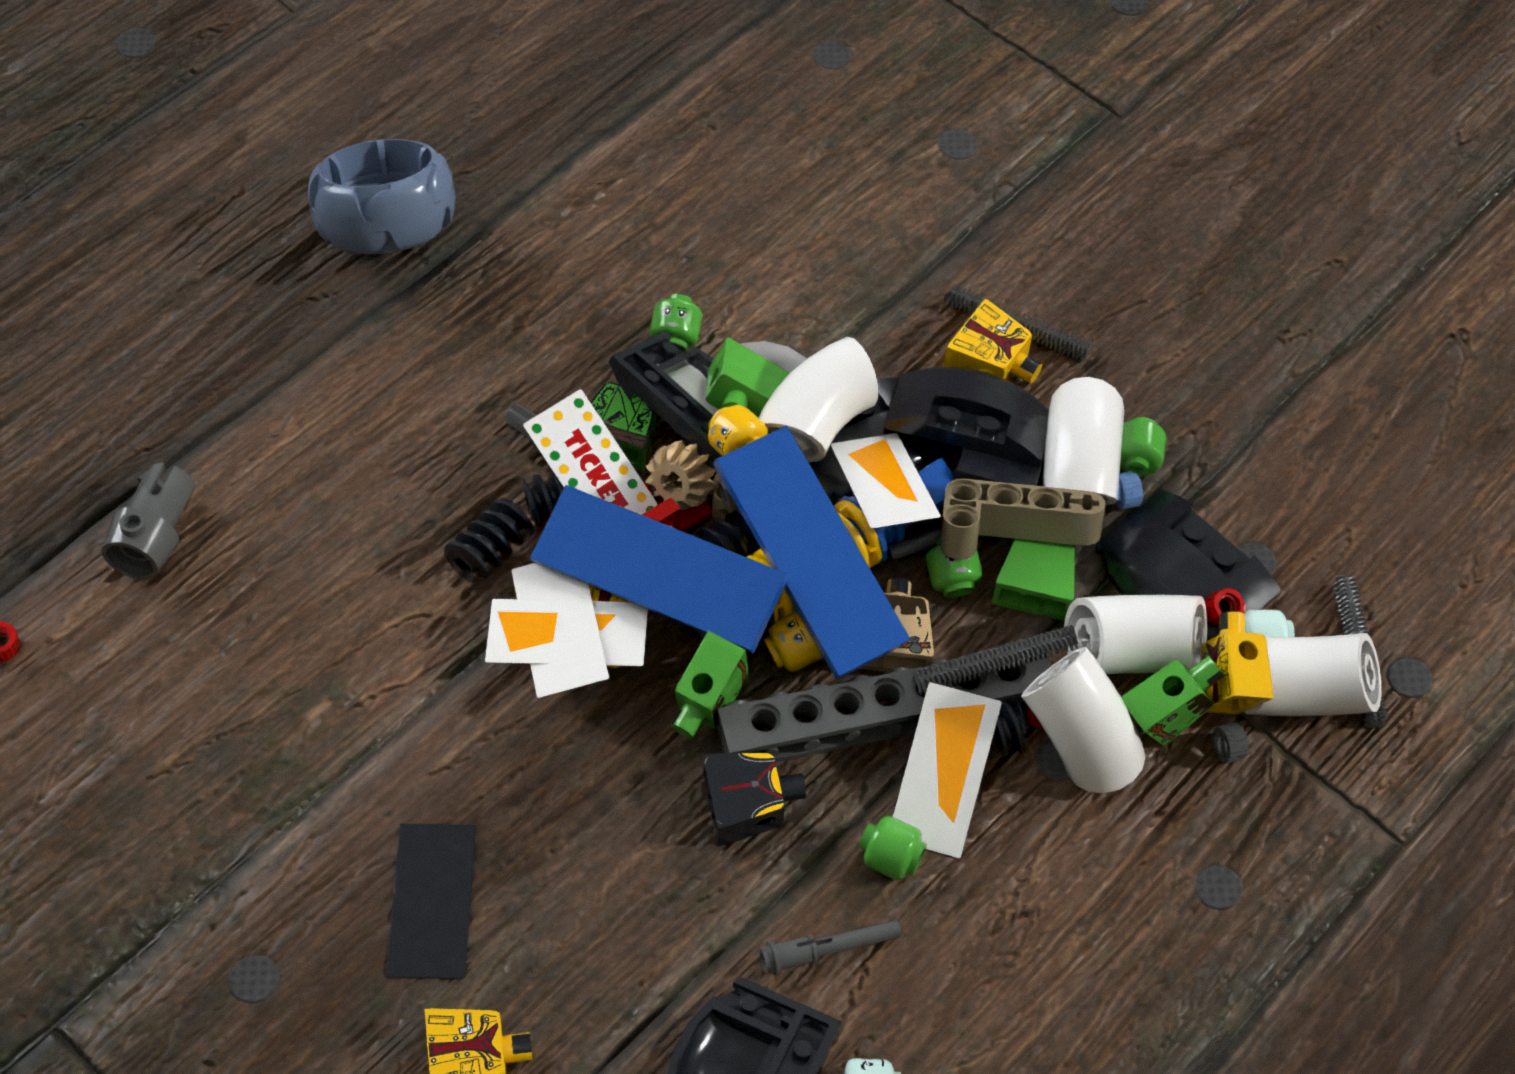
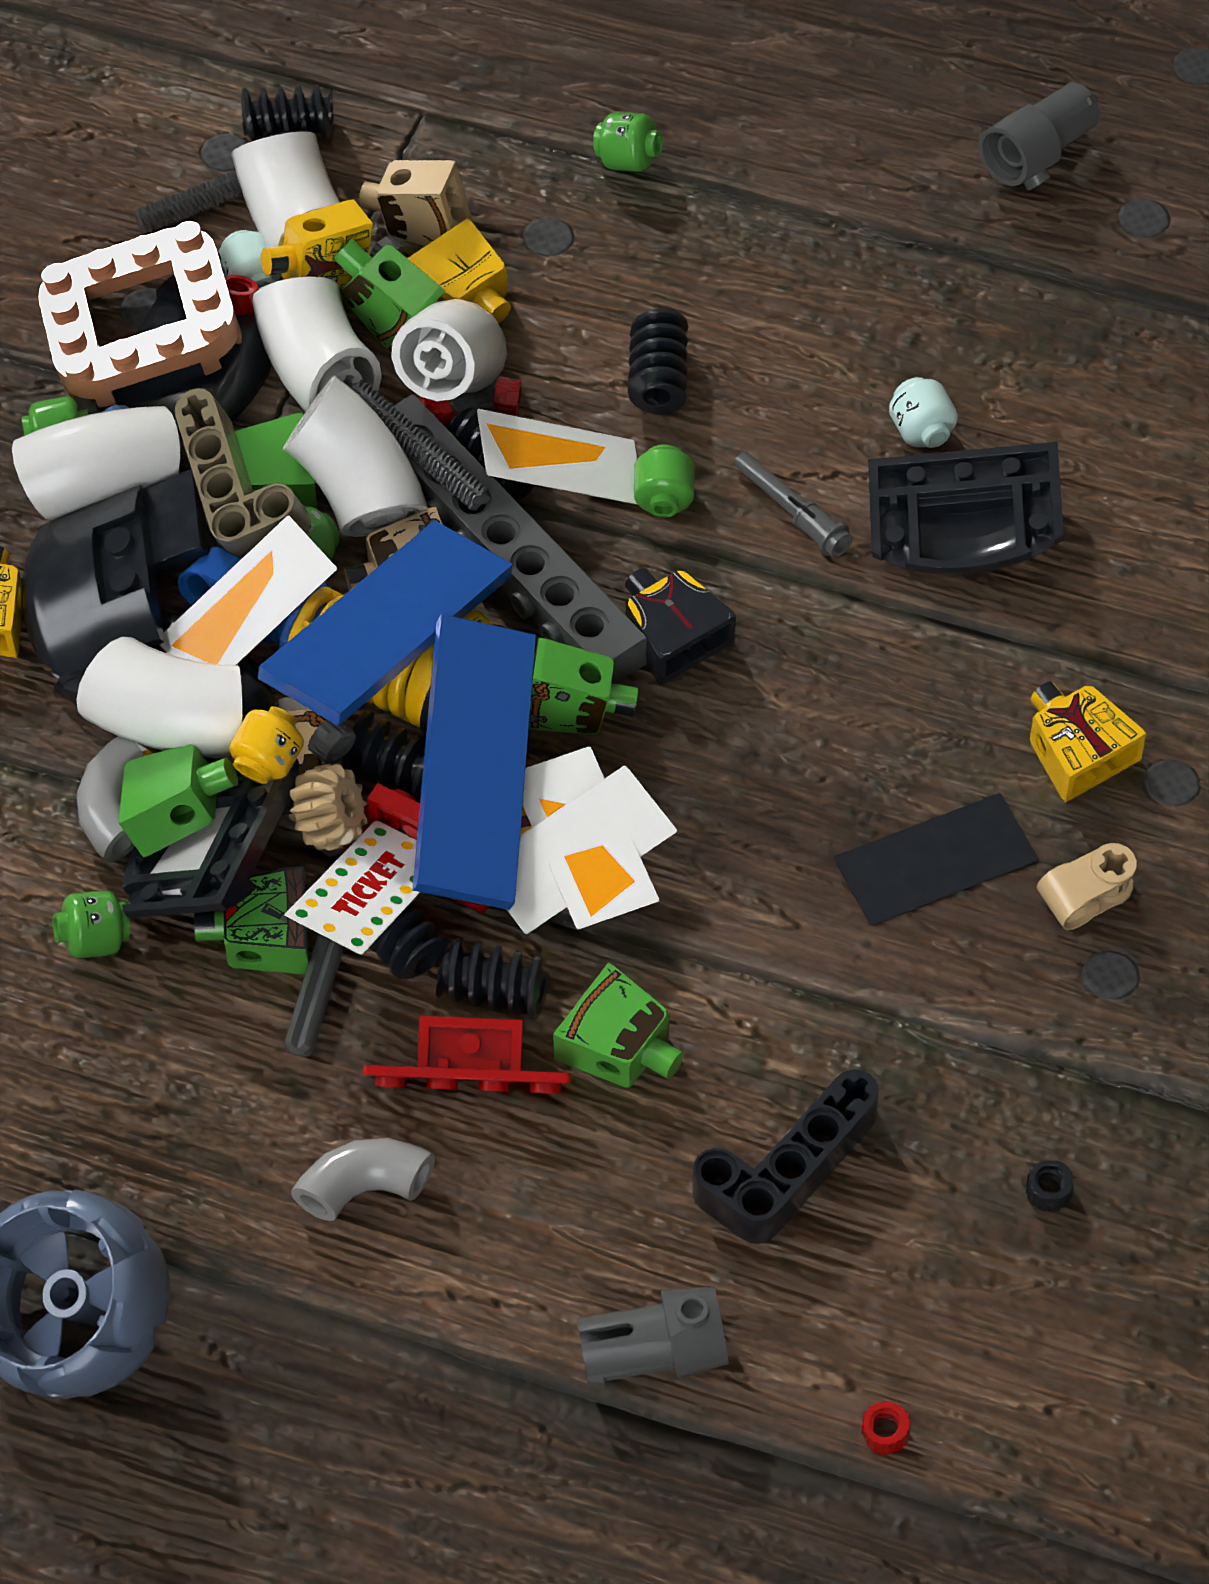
camera: 110 degrees left, 0 degrees up
(99, 824) = (1058, 1172): none -> black axle
(230, 676) = (796, 1152): none -> black beam
(329, 984) = (1089, 884): none -> tan piece
(391, 409) = (362, 1168): none -> light grey cylinder
(401, 601) = (617, 1032): none -> bright green torso
(434, 502) = (469, 1050): none -> red bracket
(991, 605) = (355, 462): none -> white brick
(1023, 896) = (658, 361): none -> black piece
(1038, 769) = (508, 395): none -> red axle
(1180, 558) = (201, 338): none -> plate
(1185, 784) = (466, 269): none -> yellow torso
(1285, 765) = (418, 199): none -> tan torso
(1296, 981) = (627, 141): none -> bright green head
(1423, 721) = (287, 114): none -> black piece

